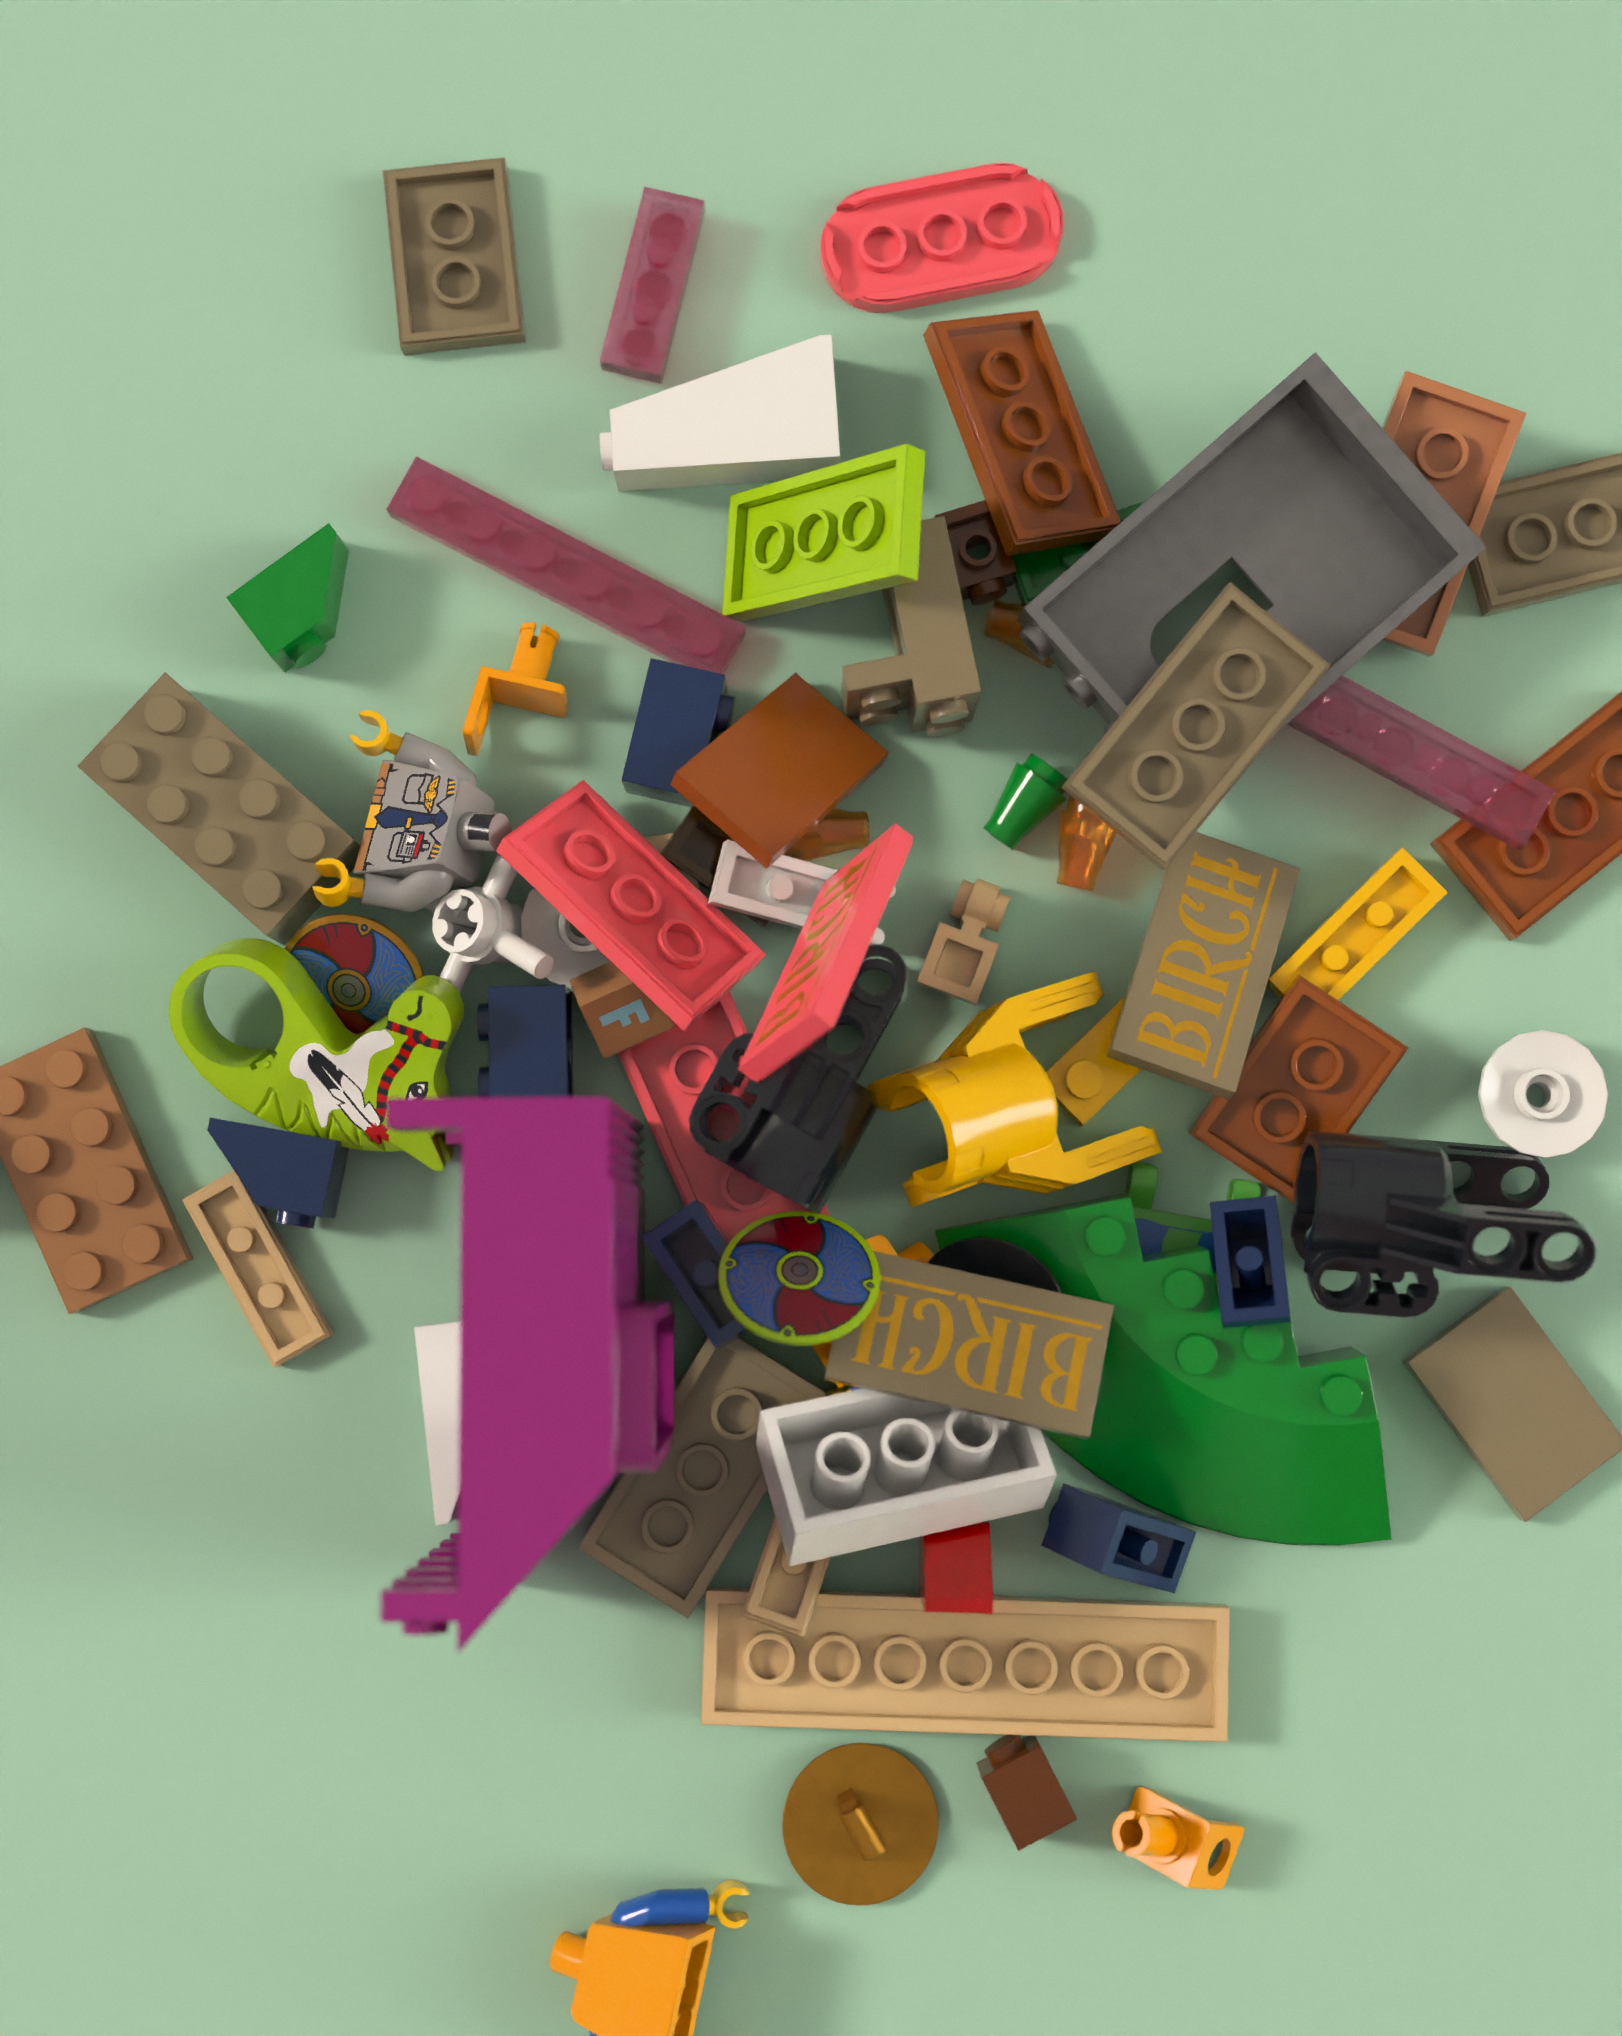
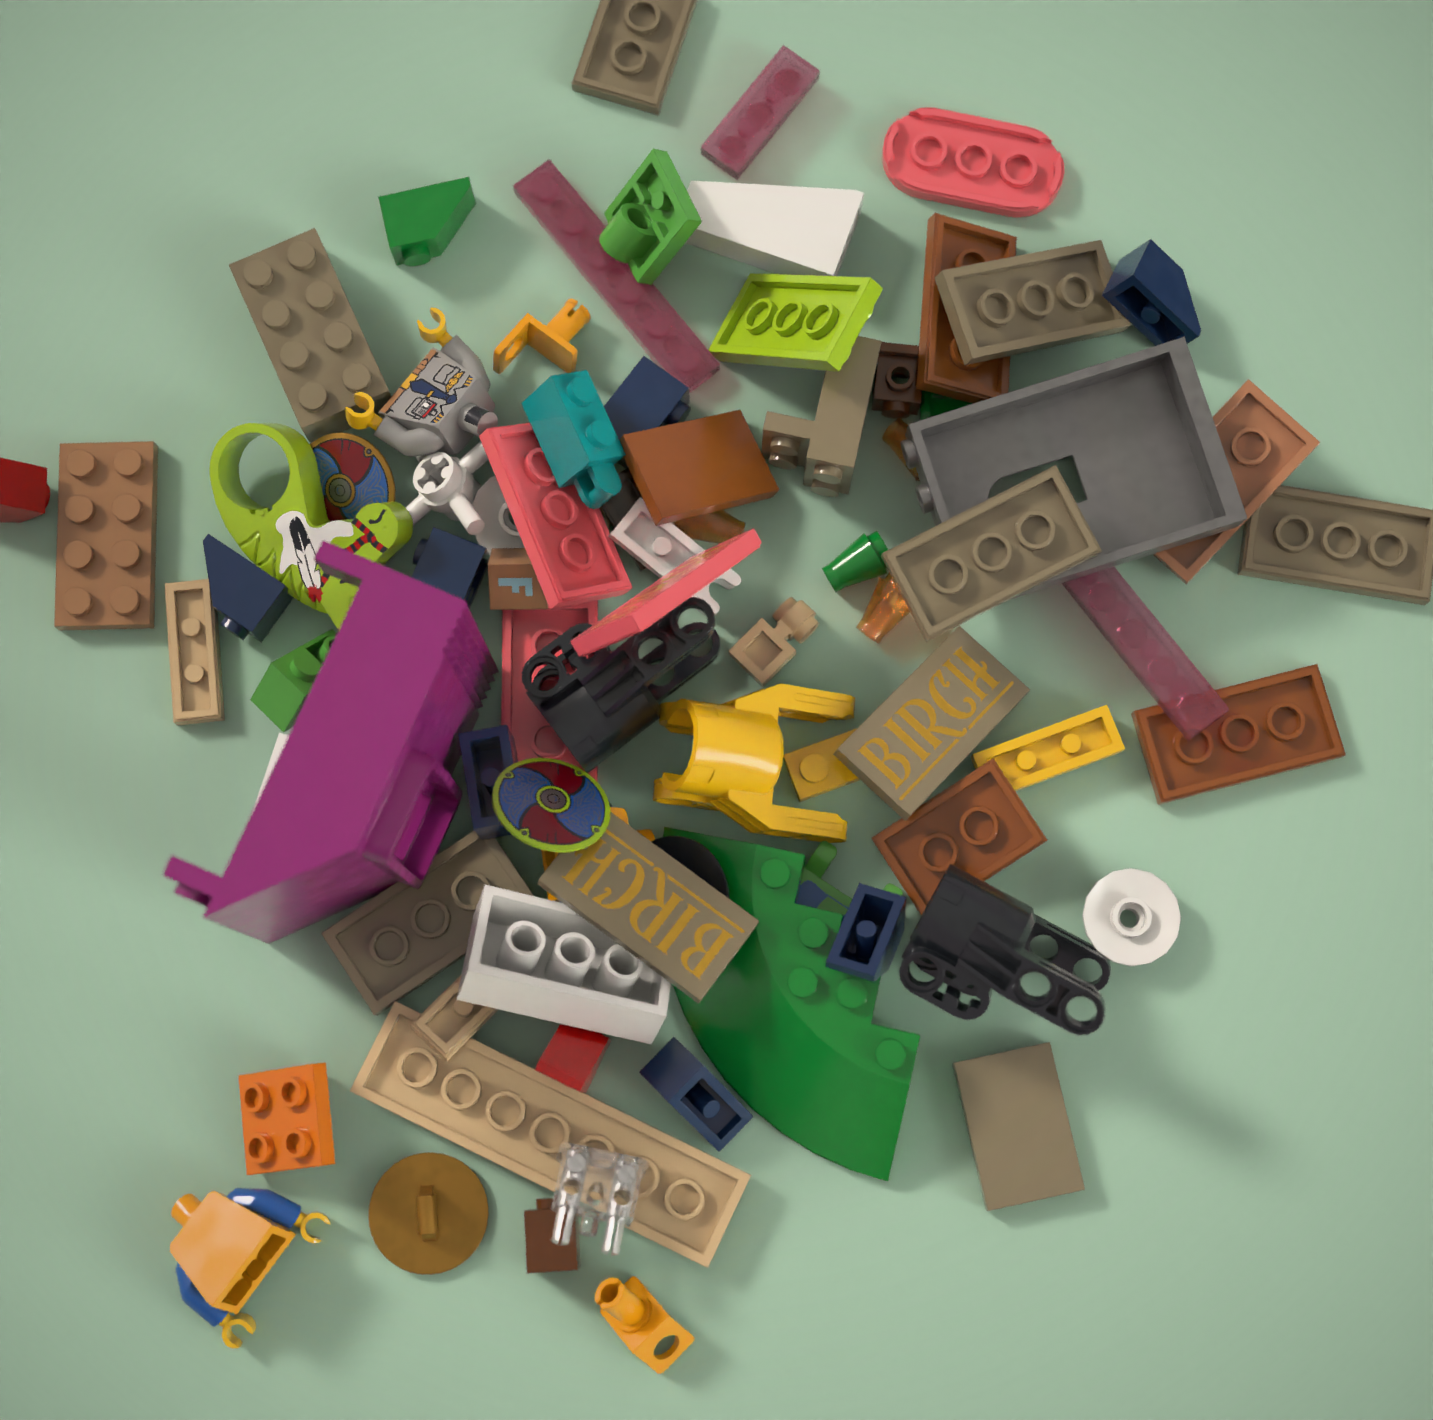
camera: 25 degrees right, 5 degrees down
(412, 1244) = (290, 681): none -> bright green slope
(581, 480) = (650, 218): none -> bright green plate
(617, 798) = (576, 436): none -> teal brick
(641, 1793) = (286, 1119): none -> orange plate
(1064, 1691) = (600, 1172): none -> clear piece
(1098, 385) = (1029, 302): none -> dark tan plate
(1241, 315) = (1153, 295): none -> dark blue slope

